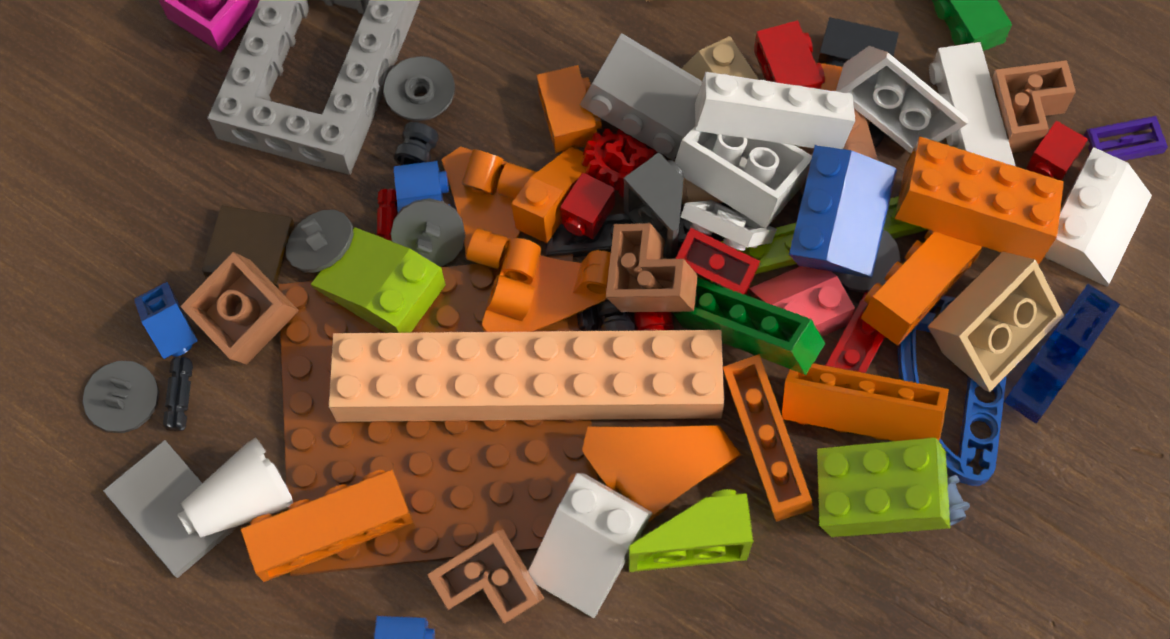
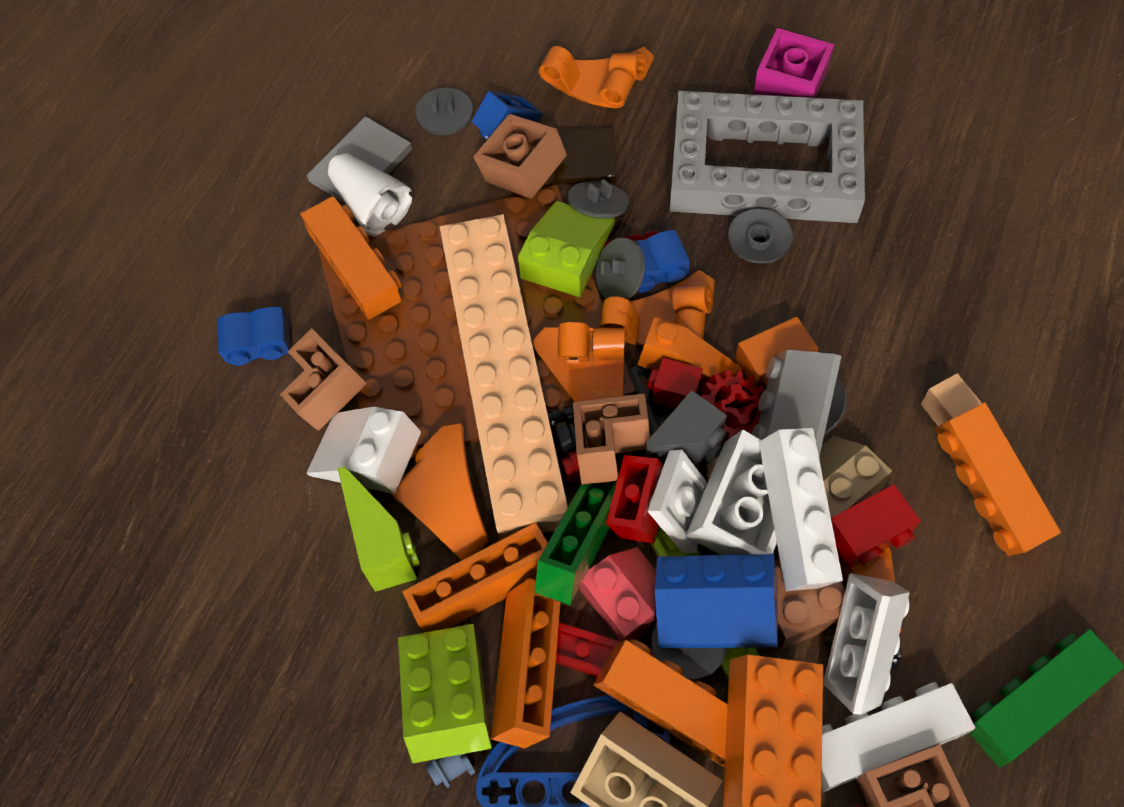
camera: 80 degrees right, 5 degrees down
(139, 204) = (596, 81): none -> orange panel
(178, 394) = (450, 142): black axle -> none
(417, 144) = (696, 242): black wheel -> none
(847, 39) = (931, 605): black brick -> none

